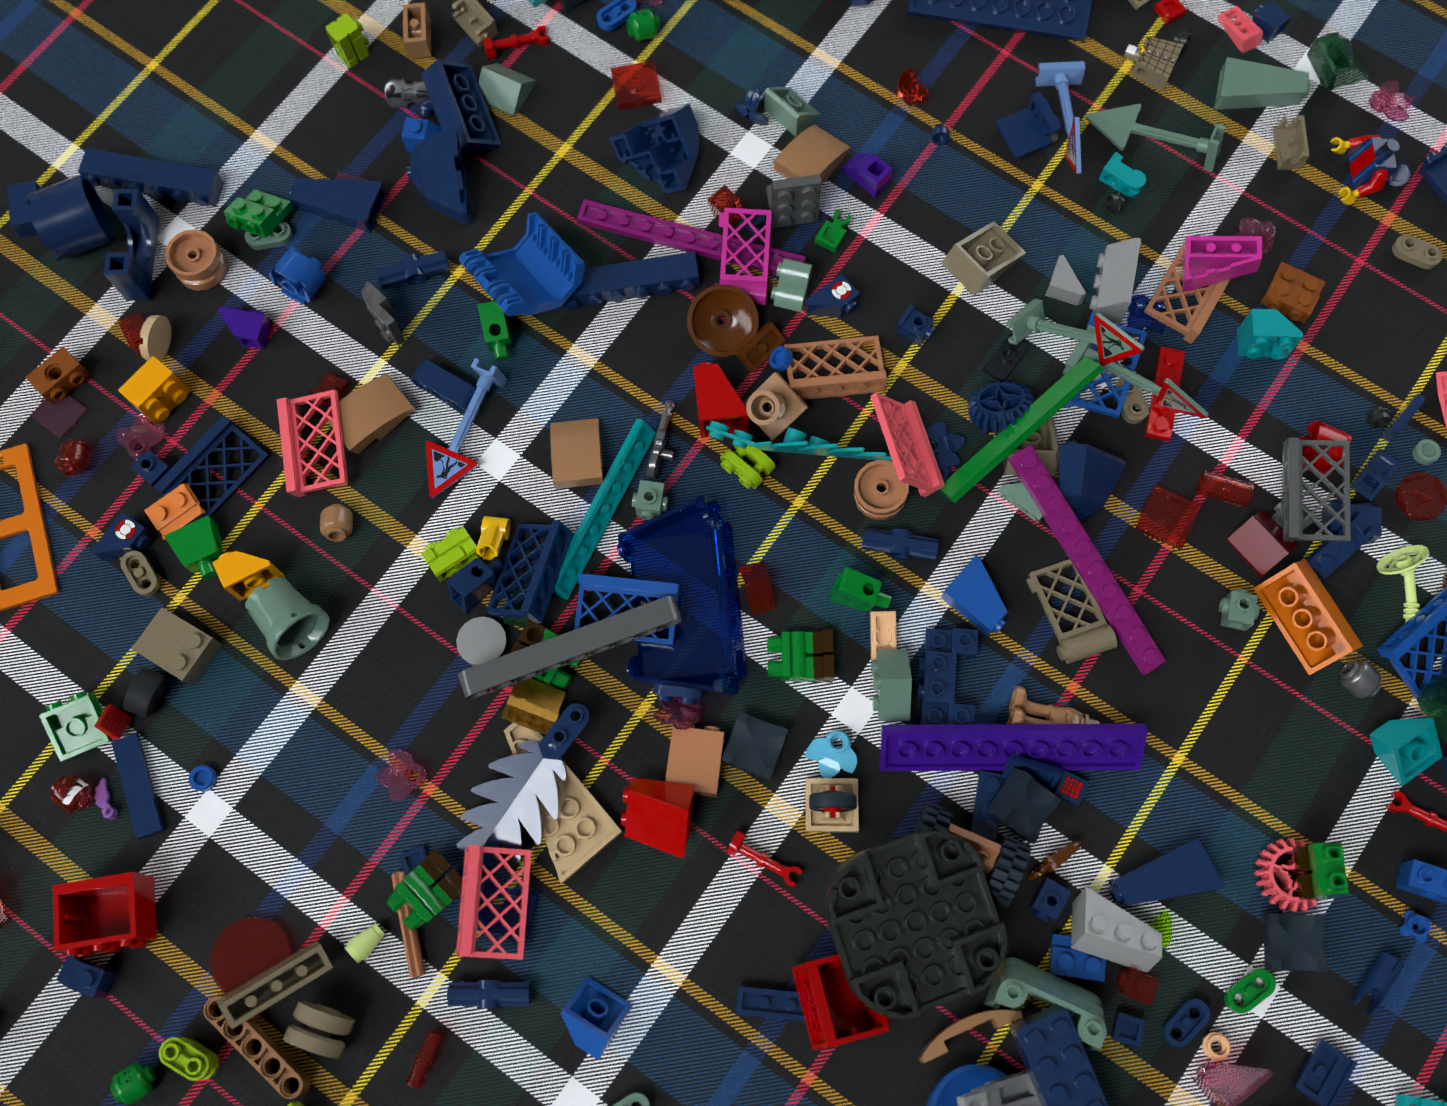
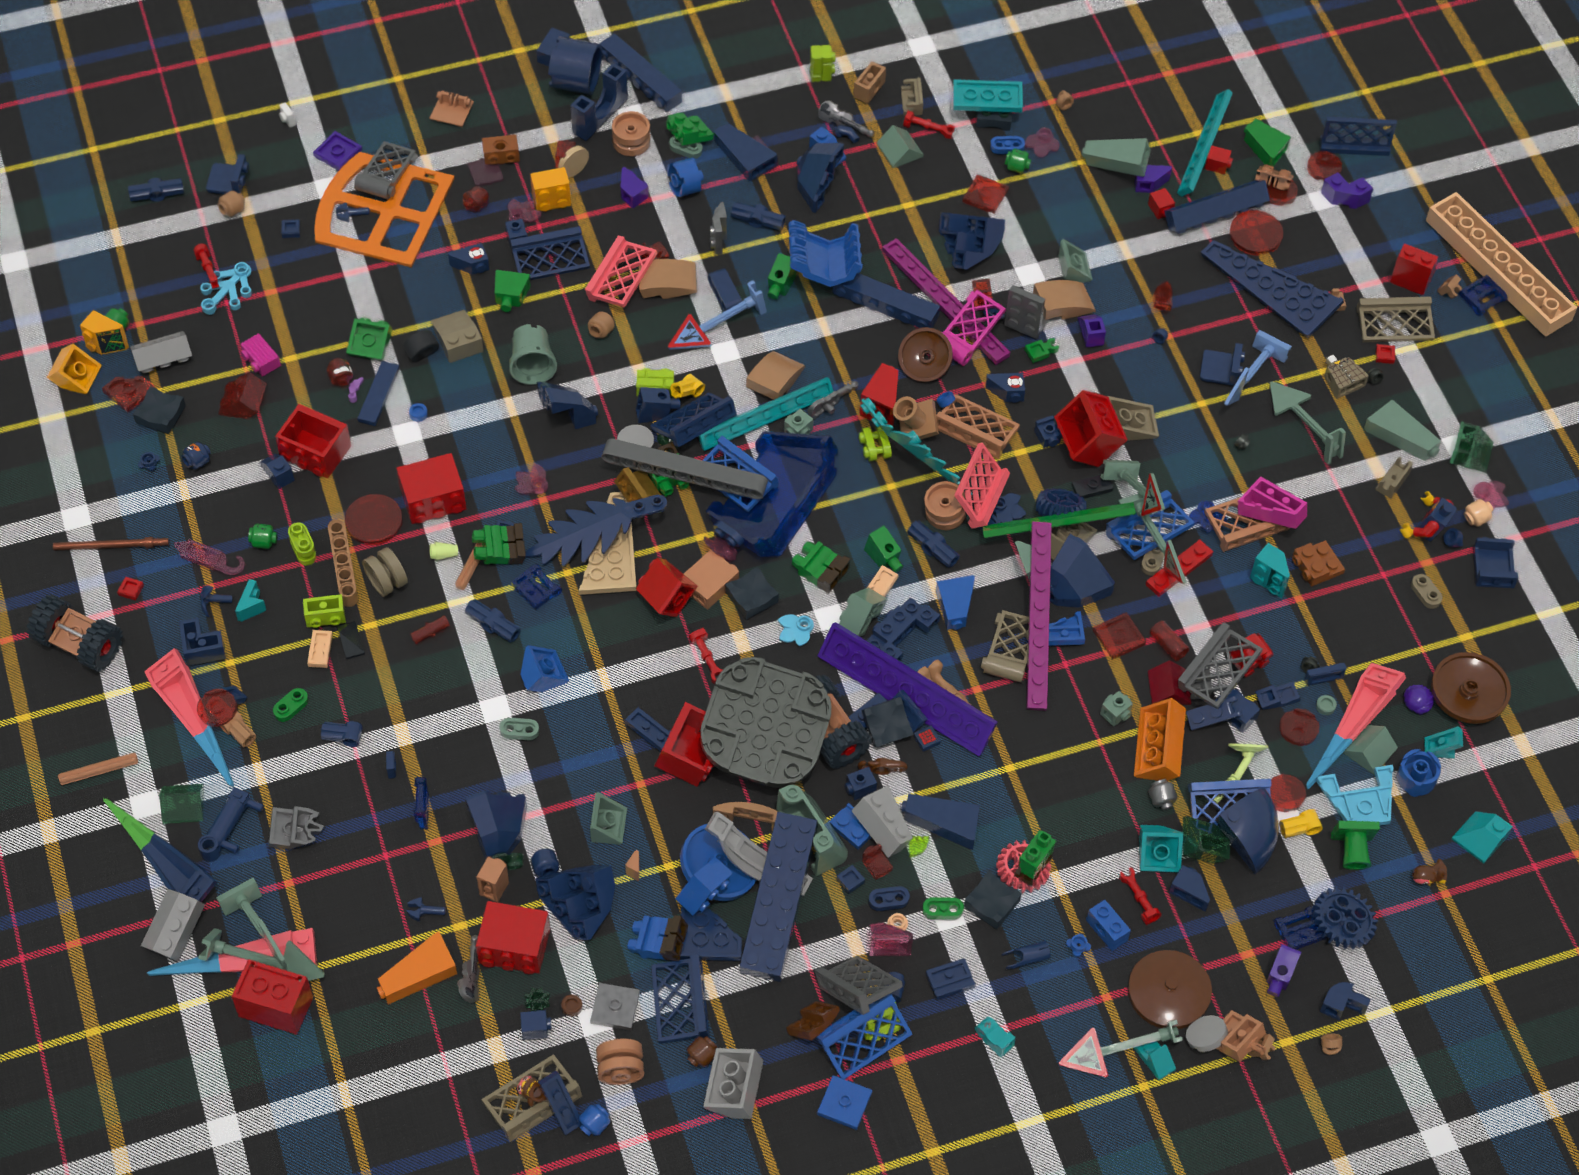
camera: 30 degrees right, 15 degrees down
(112, 722) = (391, 350): tile -> none
(141, 575) = (466, 287): dark tan plate -> none
(175, 510) = (512, 260): orange plate -> none
(243, 573) = (526, 311): light orange slope -> none
(274, 984) = (378, 532): dark tan brick -> none
(294, 877) = (431, 488): none -> red container
(370, 650) = (562, 398): none -> dark blue brick
(461, 104) = (861, 141): dark blue slope -> none
(470, 902) = (524, 557): coral fence -> none
(752, 101) = (1049, 246): dark blue plant -> none
(757, 588) = (824, 515): clear red slope -> none
(760, 346) = (938, 385): reddish brown plate -> none
(792, 284) = (987, 361): sand green brick -> none
(831, 805) = (773, 649): tan plate -> none
(966, 295) = (1090, 428): none -> red container
(1065, 284) = (1164, 465): light grey slope -> none
(1115, 279) = (1200, 483): light grey slope -> none
(1117, 548) = (1067, 631): none -> blue wing
(1122, 177) = (1260, 430): teal leg -> none
(1243, 41) = (1423, 394): coral slope -> none
(1251, 227) = (1322, 516): clear pink plate -> none
(1270, 20) = (1445, 398): dark blue brick -> none
(1401, 128) = (1478, 512): none -> light nougat head

